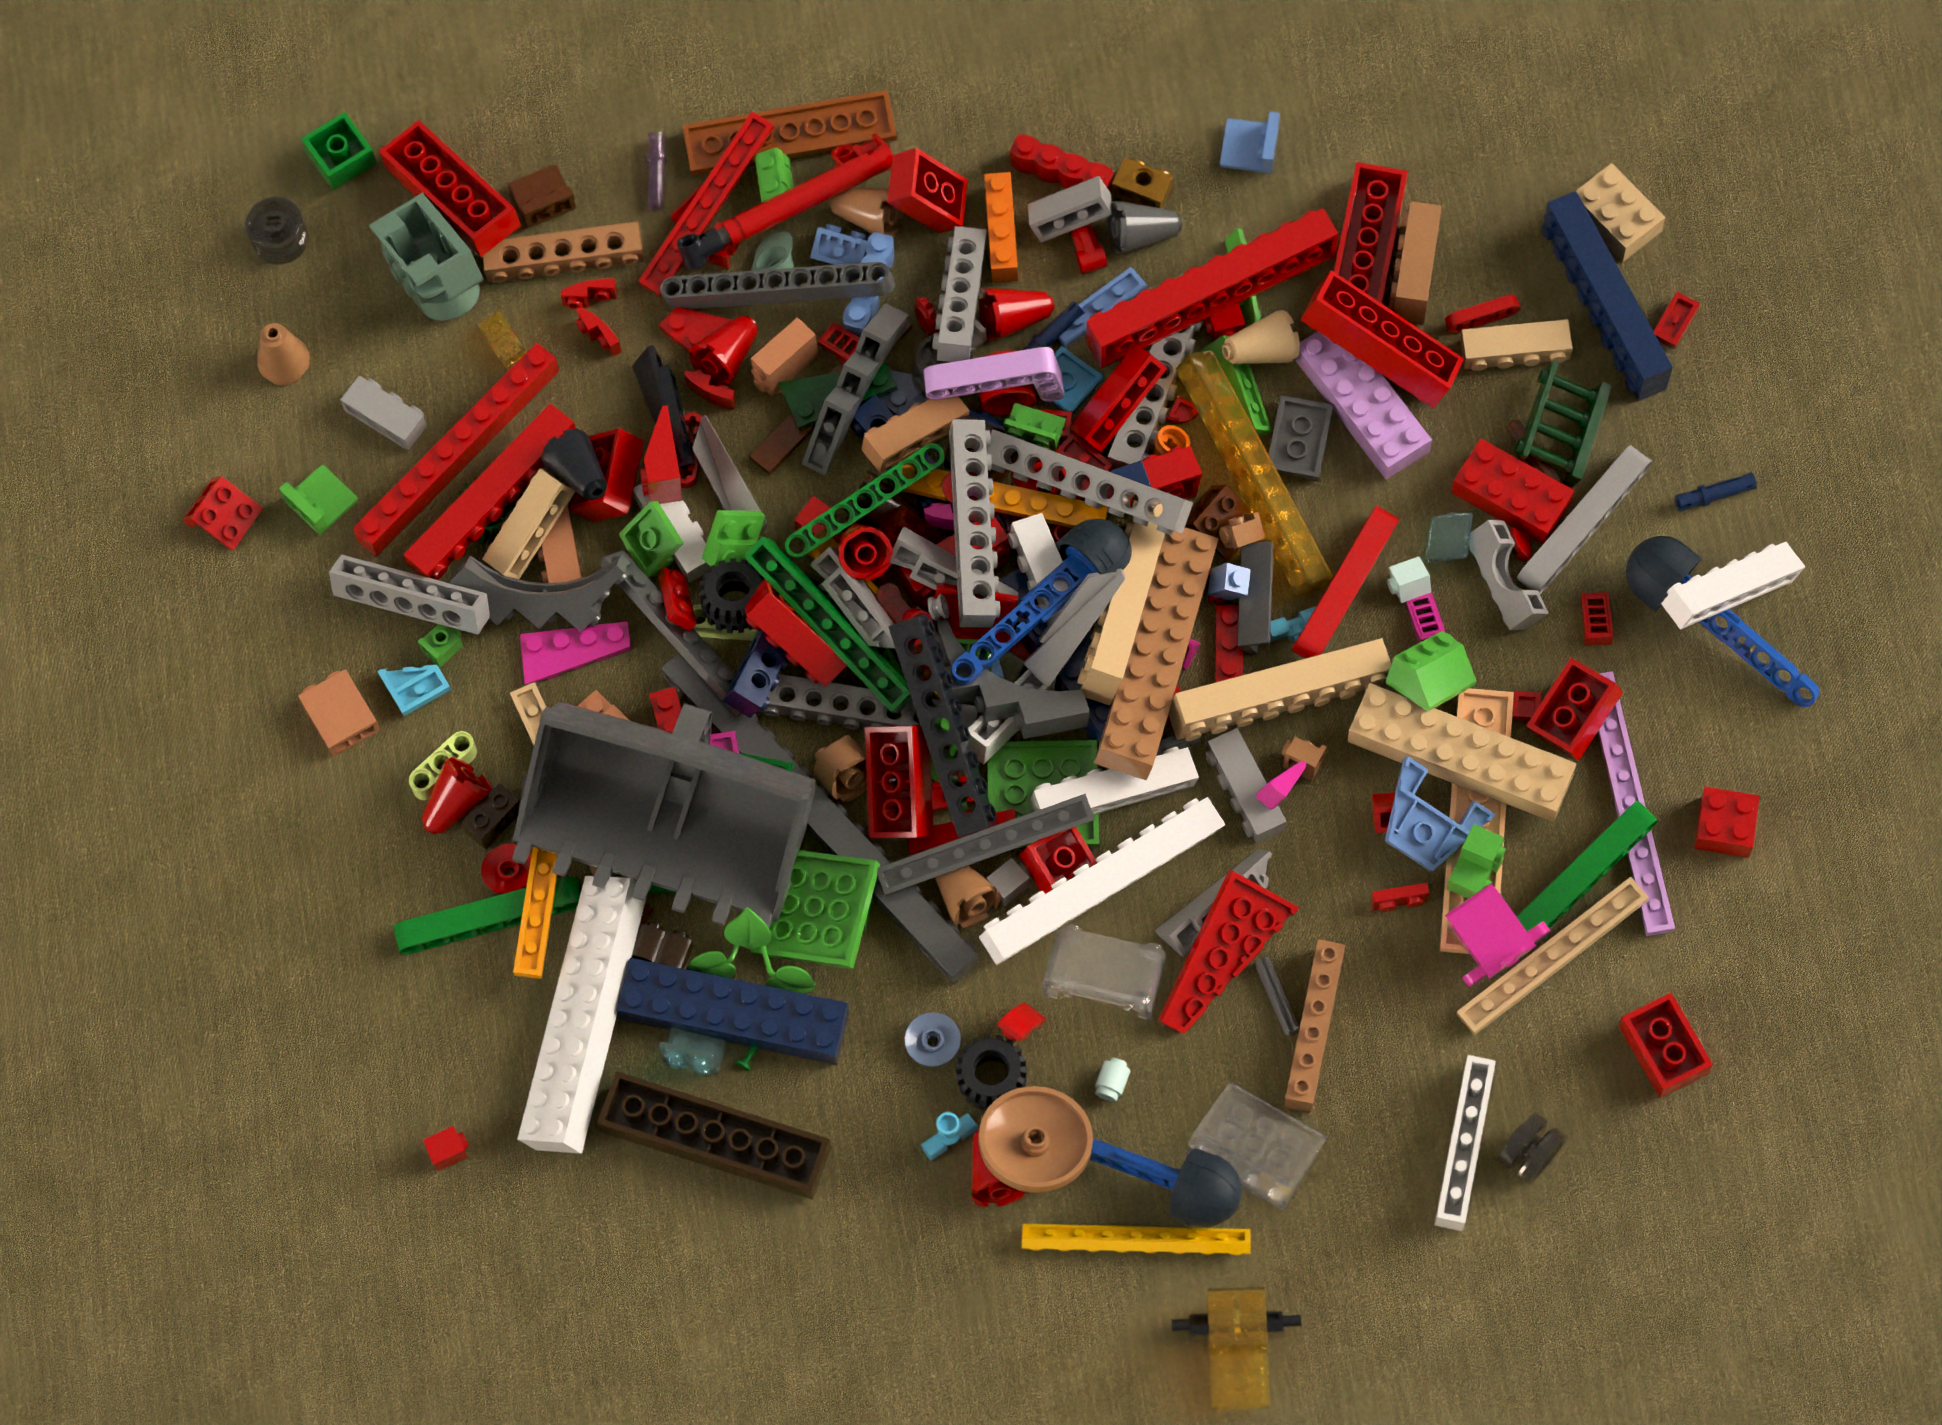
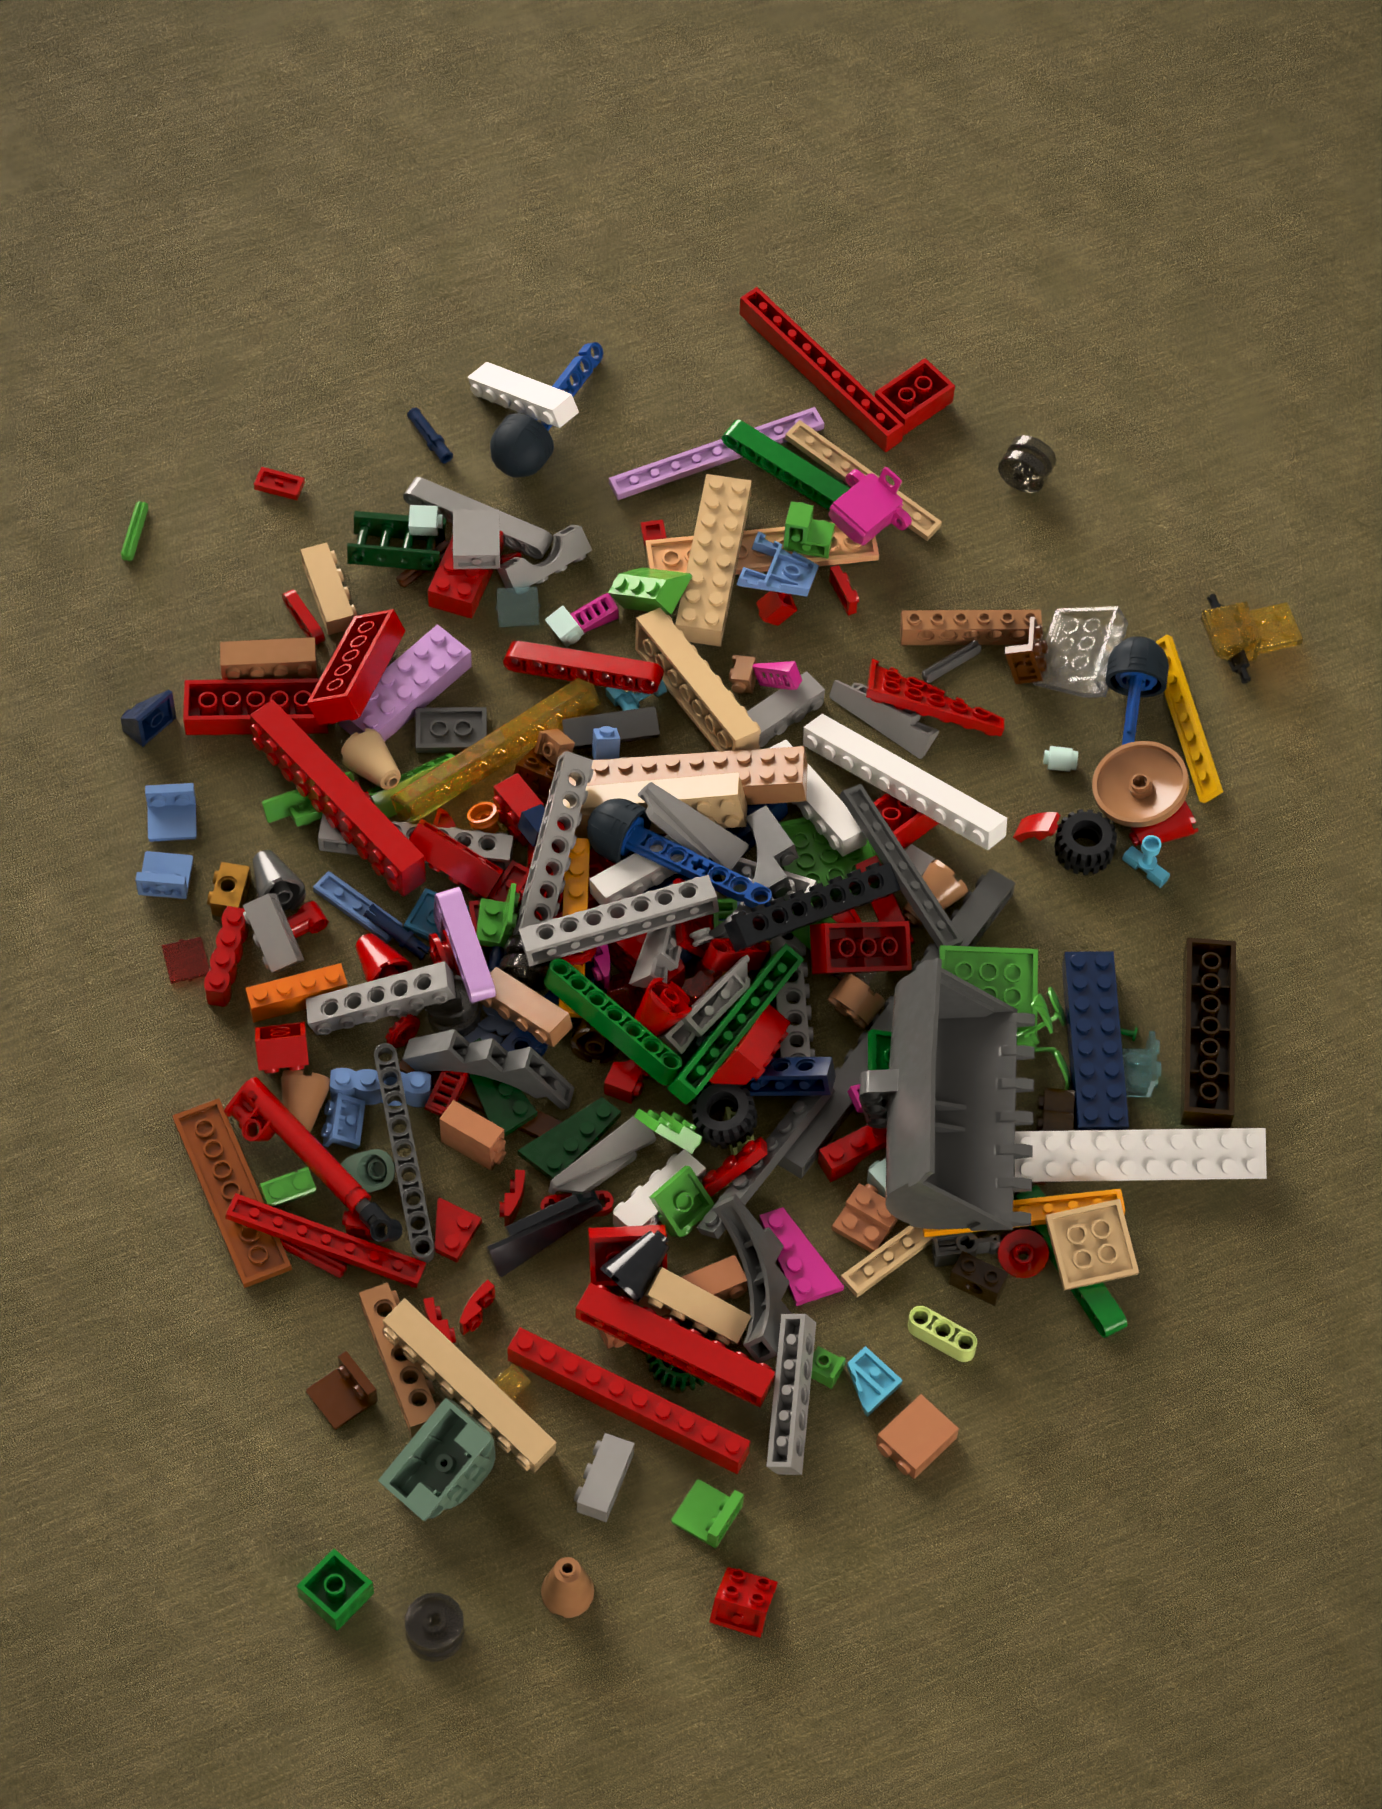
camera: 110 degrees left, 10 degrees down
(446, 1148) = (1290, 1238): red brick -> none
(452, 186) = (352, 1474): red brick -> none
(454, 795) = (973, 1308): red cone -> none
(483, 925) = (1091, 1244): none -> tan plate
(498, 293) = (469, 1385): none -> tan brick
(656, 161) = (294, 1299): pin -> none
(661, 473) = (608, 1199): red slope -> none
(724, 349) = (473, 1190): red cone -> none
(757, 450) = (570, 1139): none -> dark green wing
(932, 1026) = (1071, 884): sand blue dish -> none
(1075, 134) = (185, 960): none -> clear red piece
(1105, 970) = (976, 766): clear windscreen -> none
(1177, 127) = (164, 875): none -> medium blue bracket
(1228, 654) = (656, 746): red plate -> none
(1256, 1080) = (1028, 660): none -> reddish brown bracket
(1373, 133) = (149, 717): none -> dark blue slope
(1465, 1143) = (1034, 511): white brick -> none
(1532, 491) = (476, 539): none -> light grey panel
(1574, 447) = (424, 520): none -> light aqua brick
(1574, 709) = (654, 490): red brick -> none
(1596, 638) = (561, 492): red slope -> none
(1606, 296) = (271, 526): dark blue brick -> none
(1620, 212) = (187, 535): tan brick -> none
(1639, 164) = (134, 531): none -> bright green axle
(1726, 822) = (716, 386): red brick -> none
(1728, 945) = (821, 369): none -> red brick

